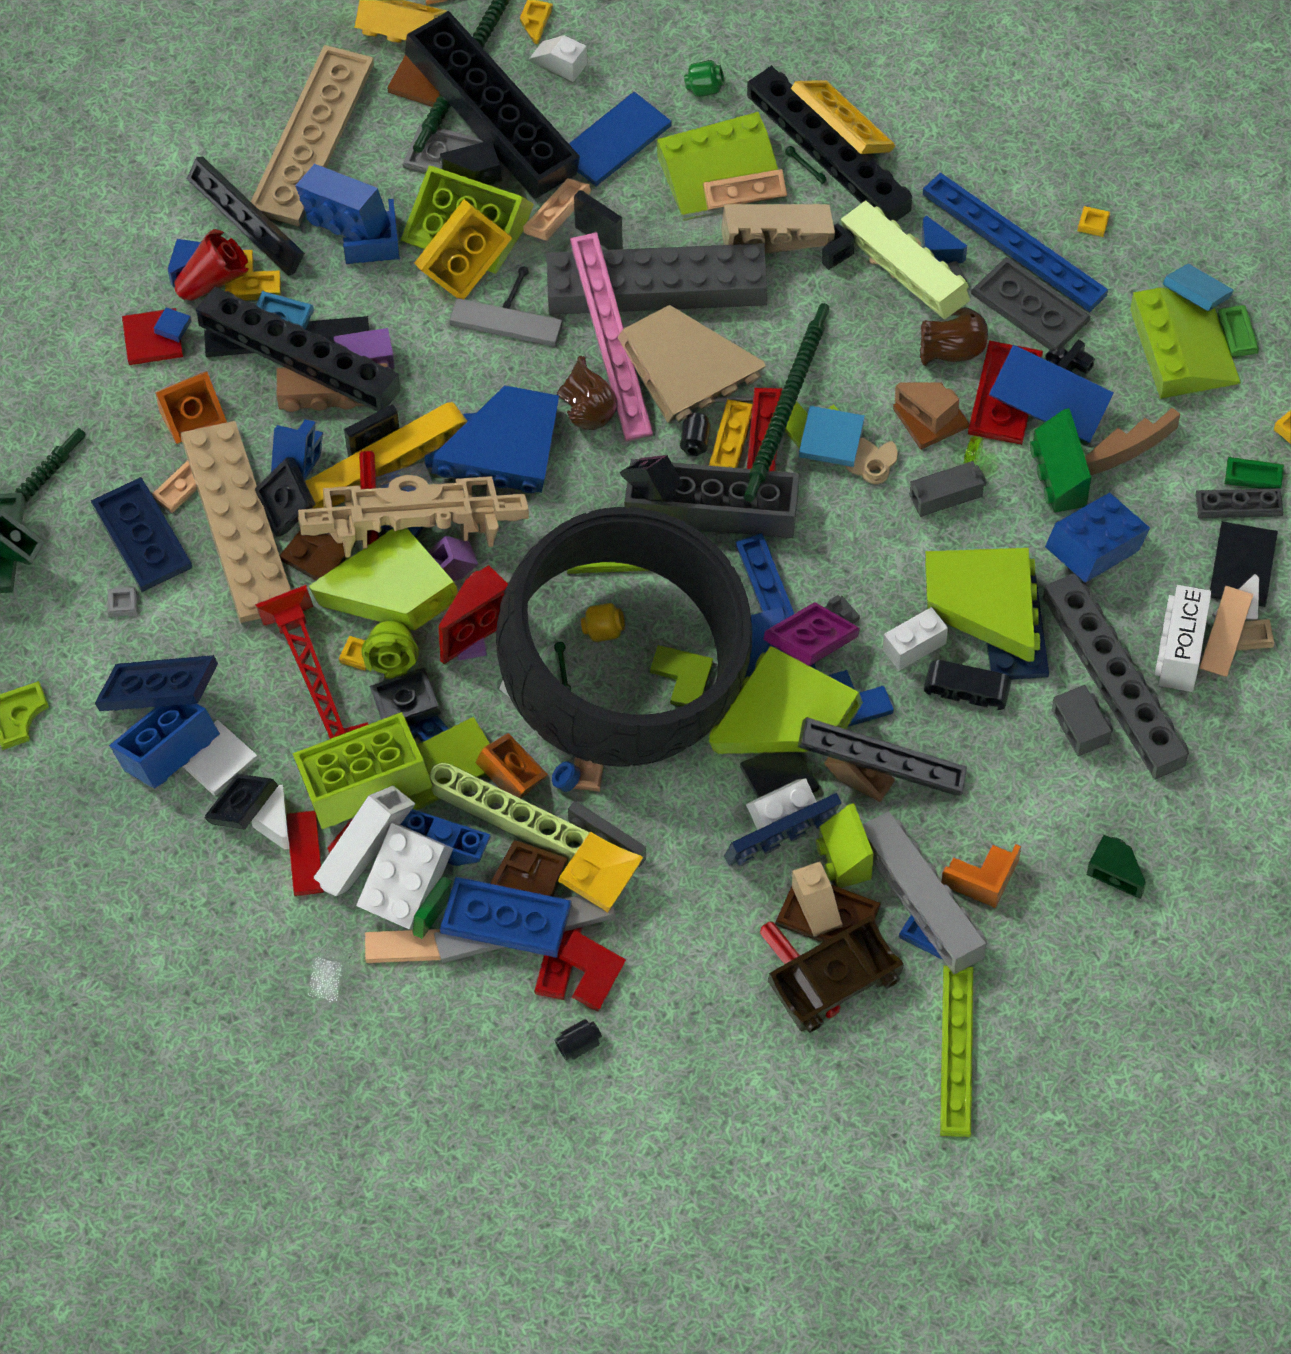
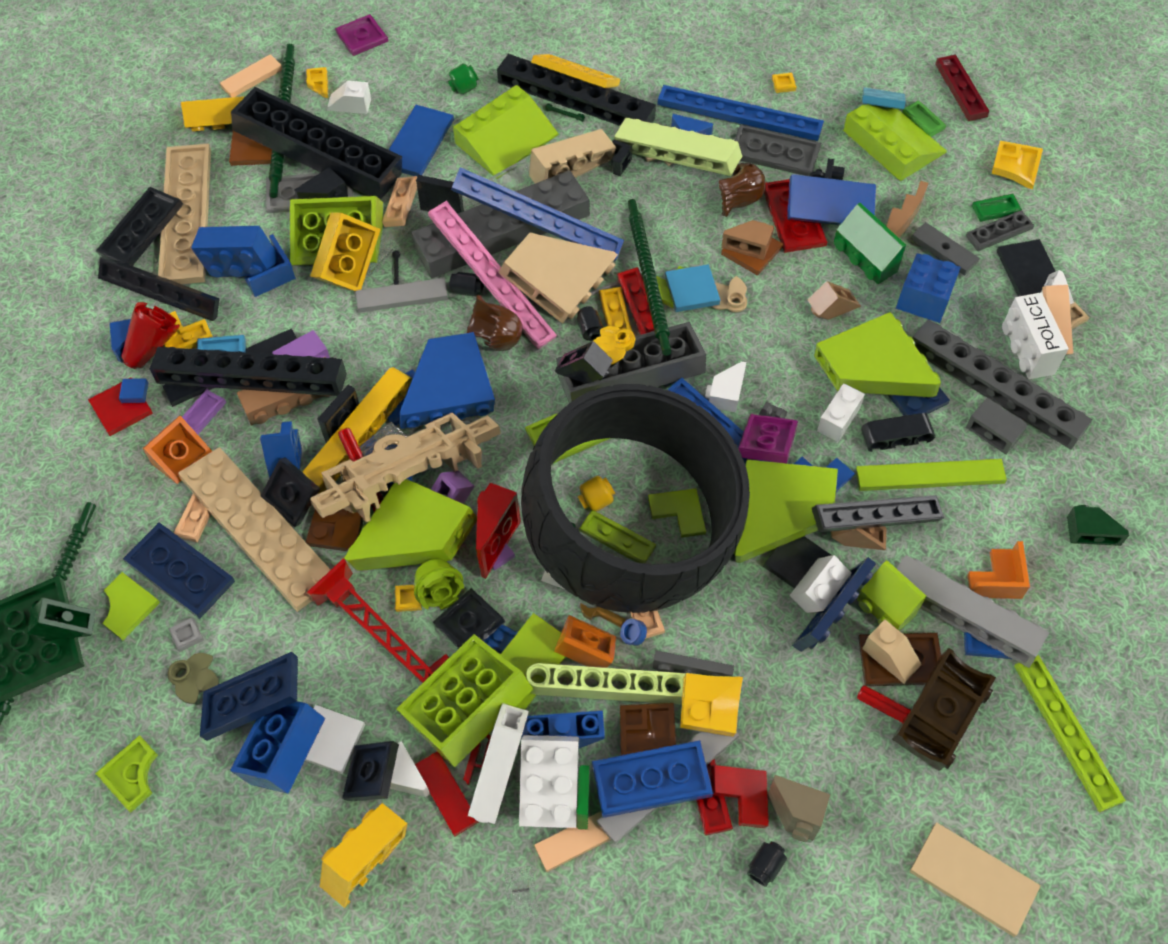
camera: 25 degrees left, 0 degrees up
(78, 550) = (128, 605): none -> lime tile
(114, 649) = (197, 677): none -> olive plate
(197, 868) = (360, 852): none -> yellow wedge
(235, 374) = (203, 410): none -> medium lavender tile
(255, 134) = (140, 226): none -> black tile
(551, 751) = (606, 614): none -> pearl gold bar
(580, 336) = (465, 284): none -> black brick
(602, 676) = (617, 537): none -> lime tile
(636, 1001) = (798, 807): none -> dark tan slope
(693, 284) = (533, 212): none -> plate
(699, 466) = (615, 342): none -> yellow plate
(745, 189) = (539, 136): light nougat tile -> none
(774, 1138) = (975, 879): none -> tan tile
(807, 564) = (726, 388): none -> white slope
(947, 488) = (794, 295): dark grey brick -> none
(973, 449) = (798, 262): clear neon green tile -> none
(978, 744) = (930, 474): none -> lime tile
(985, 511) = (832, 301): none -> medium nougat slope
(1149, 487) = (944, 247): none -> dark grey tile

